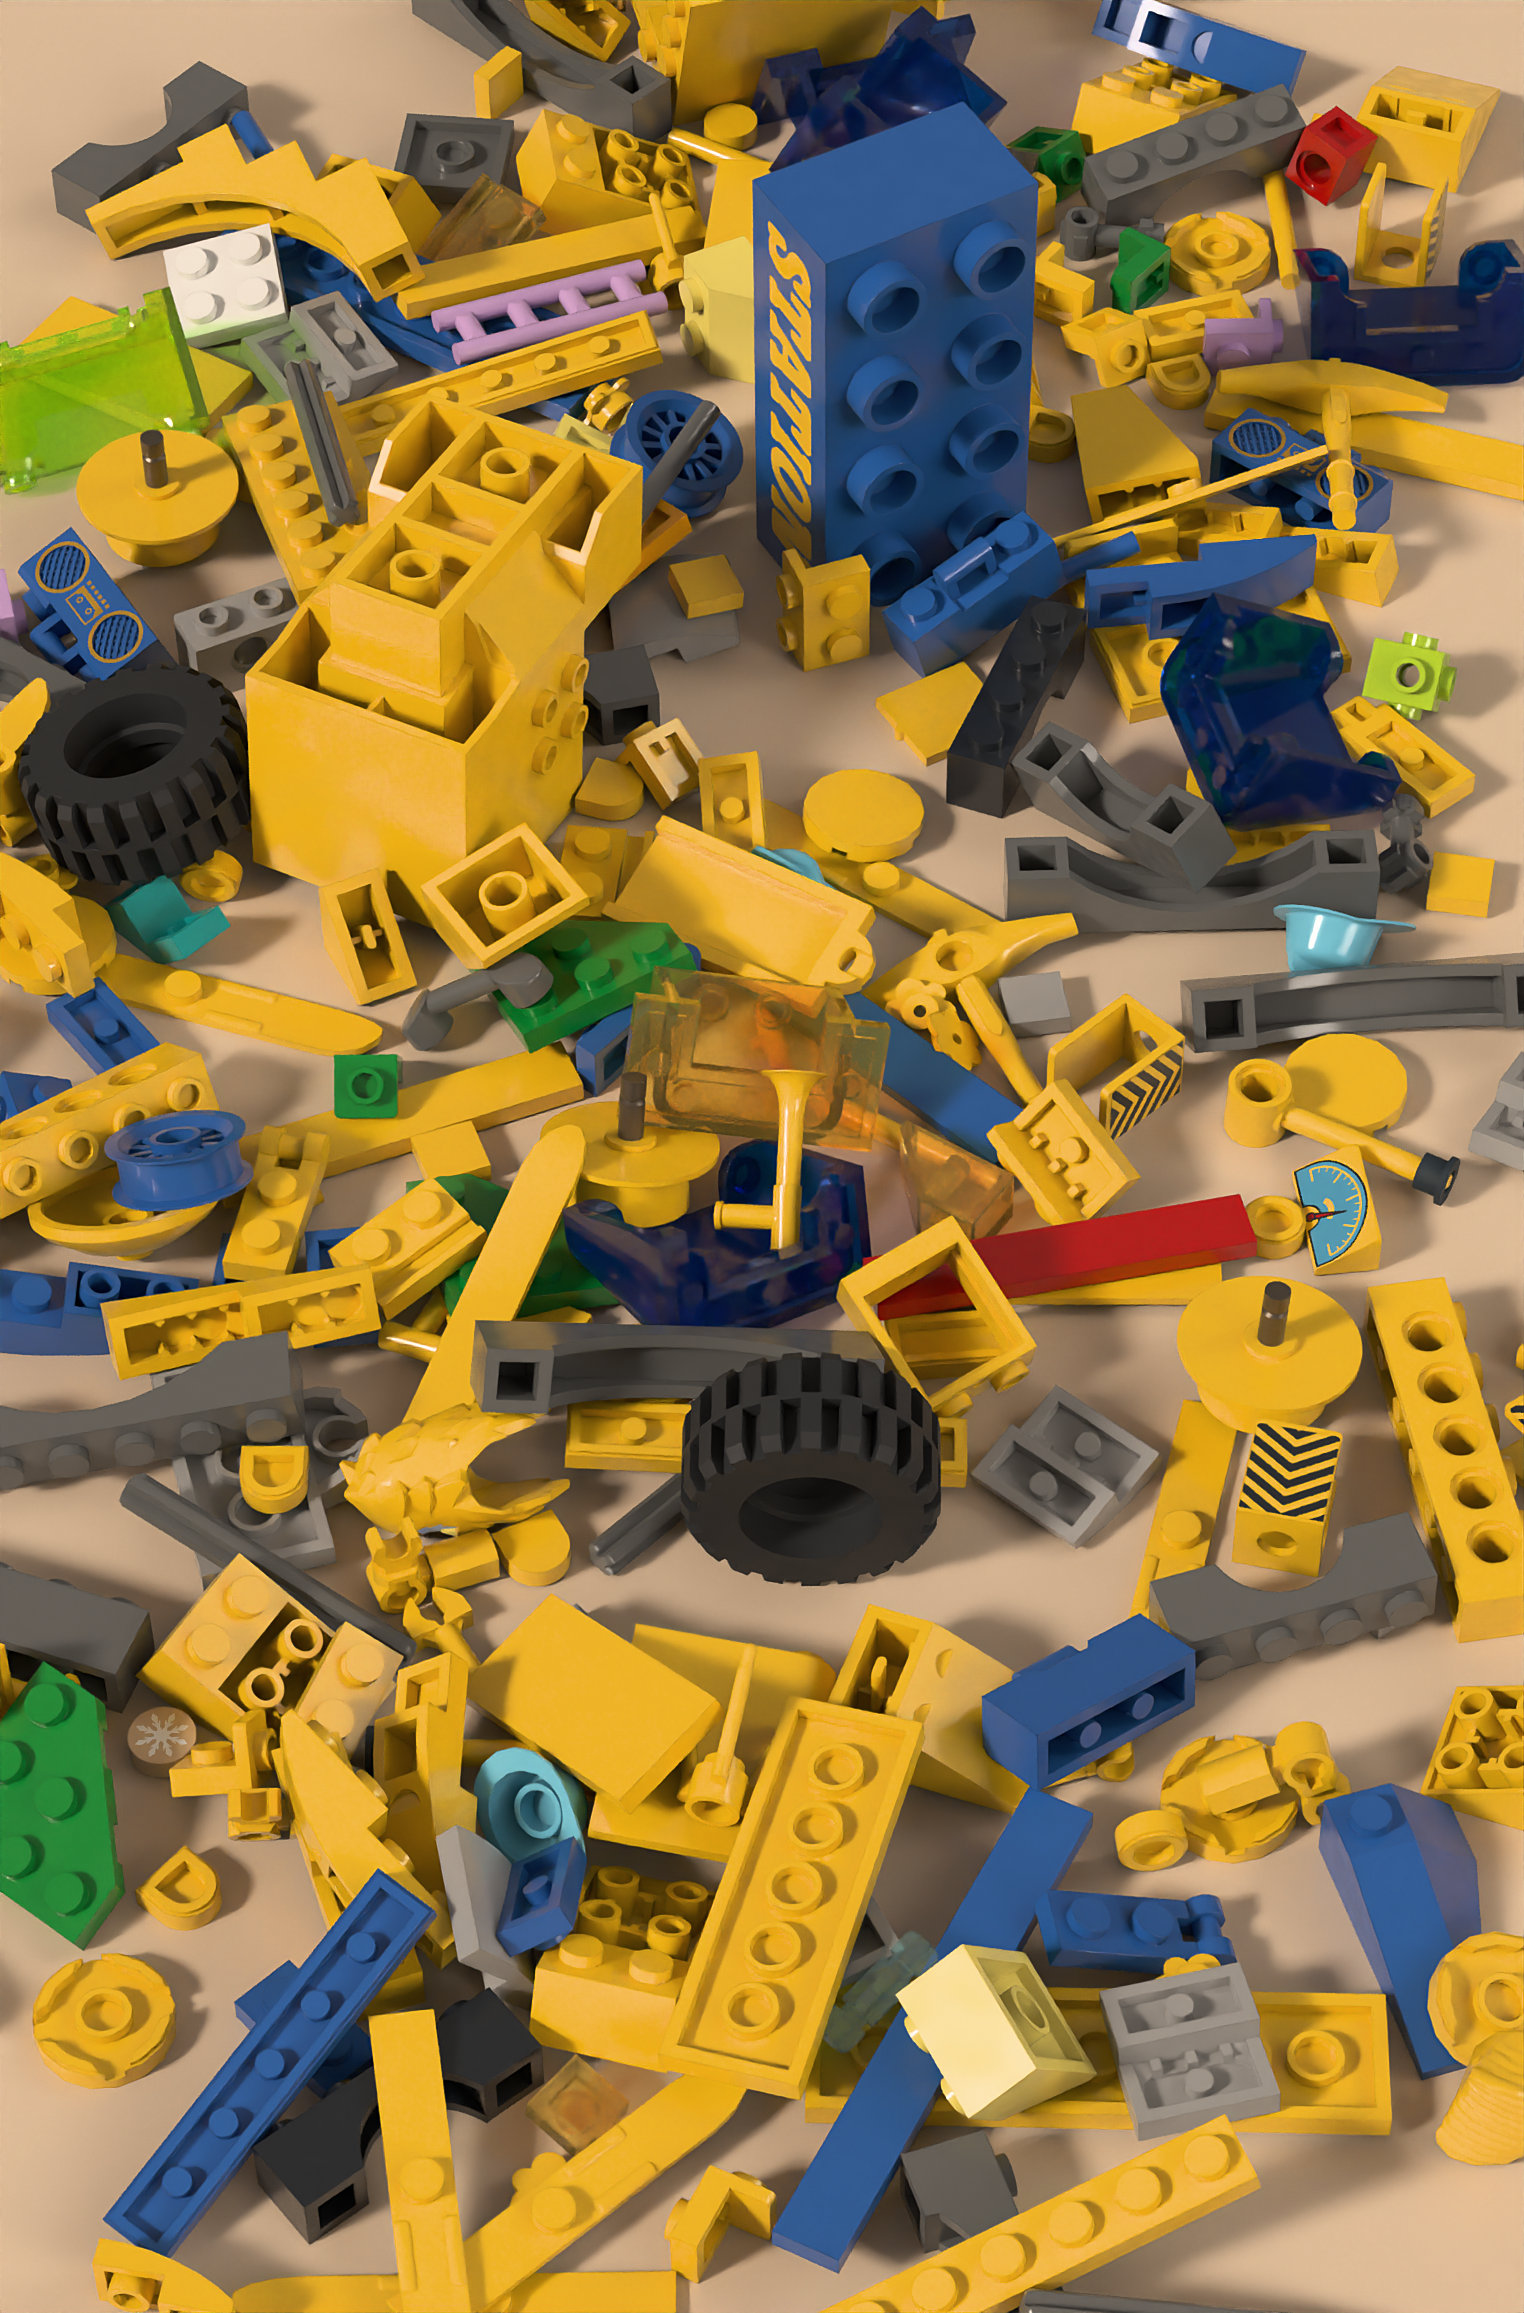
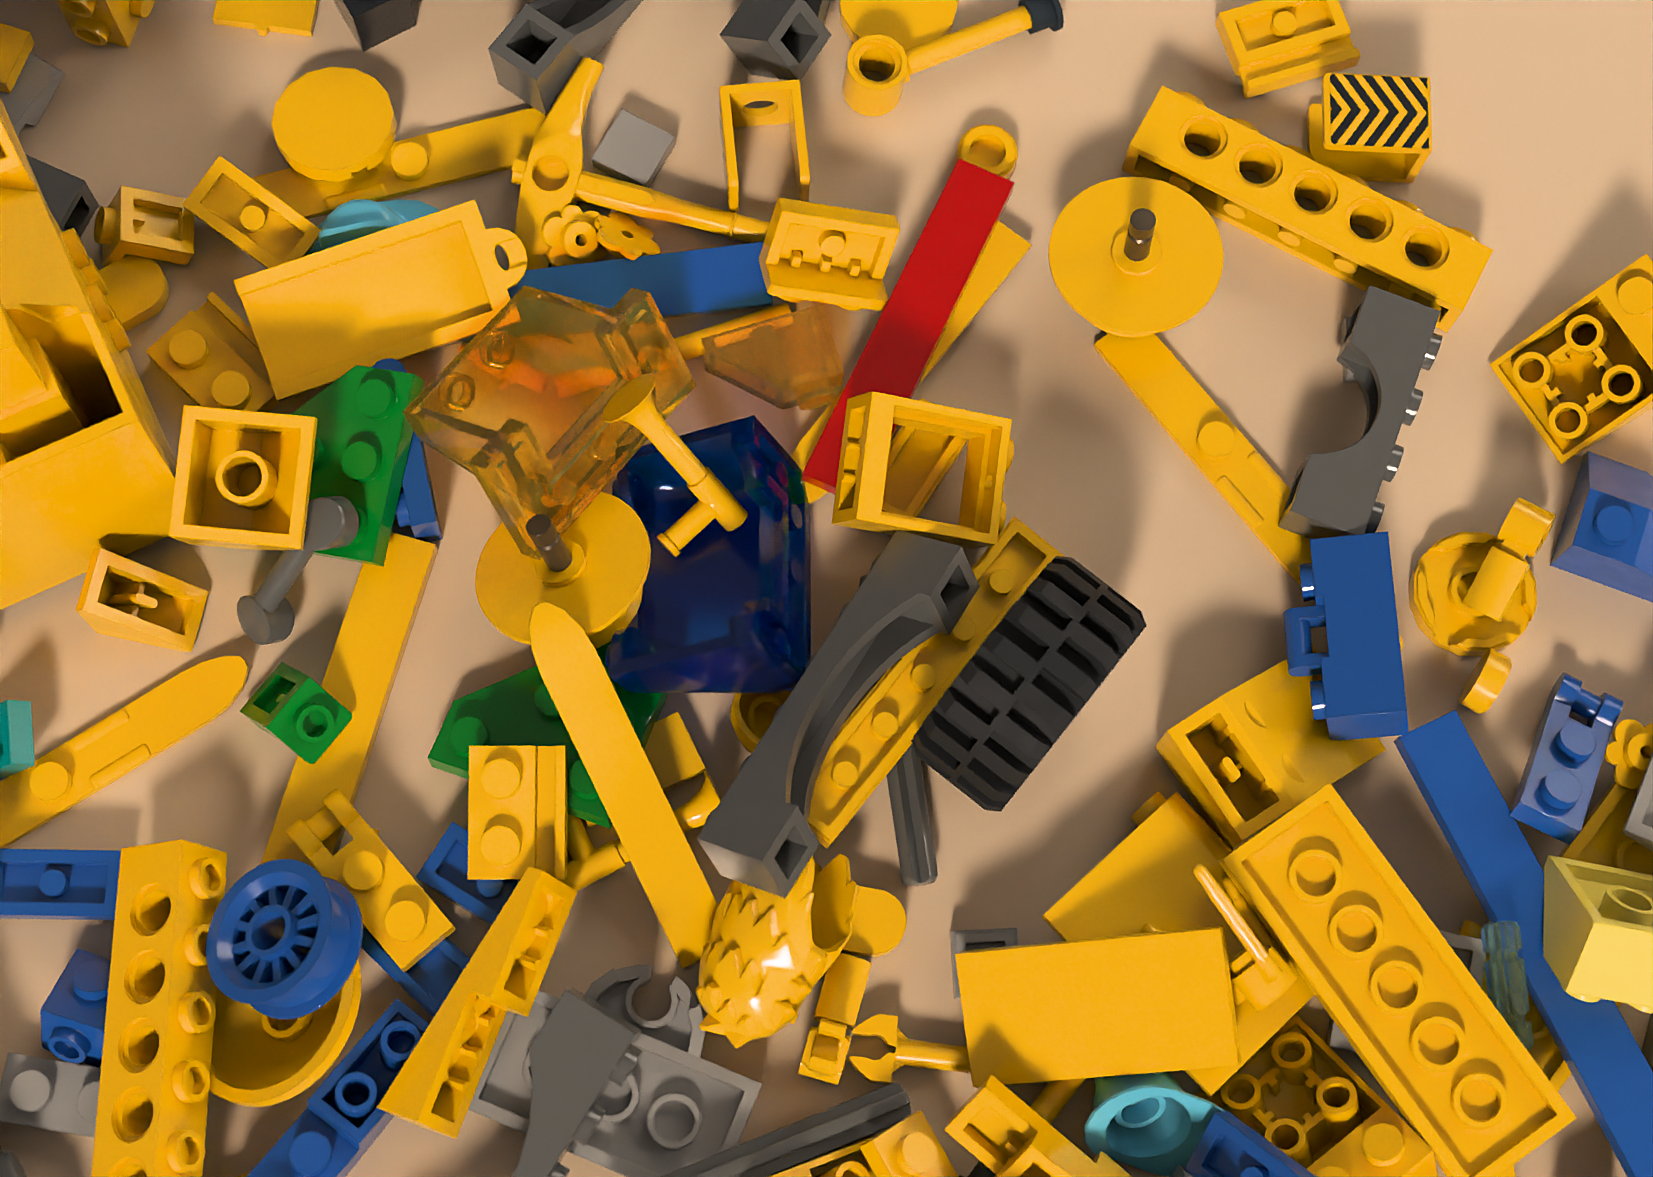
camera: 60 degrees left, 25 degrees up
(274, 1477) = (661, 1085): yellow tile -> none
(451, 1152) = (419, 698): yellow tile -> none
(1067, 1468) = (1098, 476): light grey slope -> none
(1286, 1497) = (1263, 348): piece -> none
(1338, 1213) = (1016, 98): slope -> none

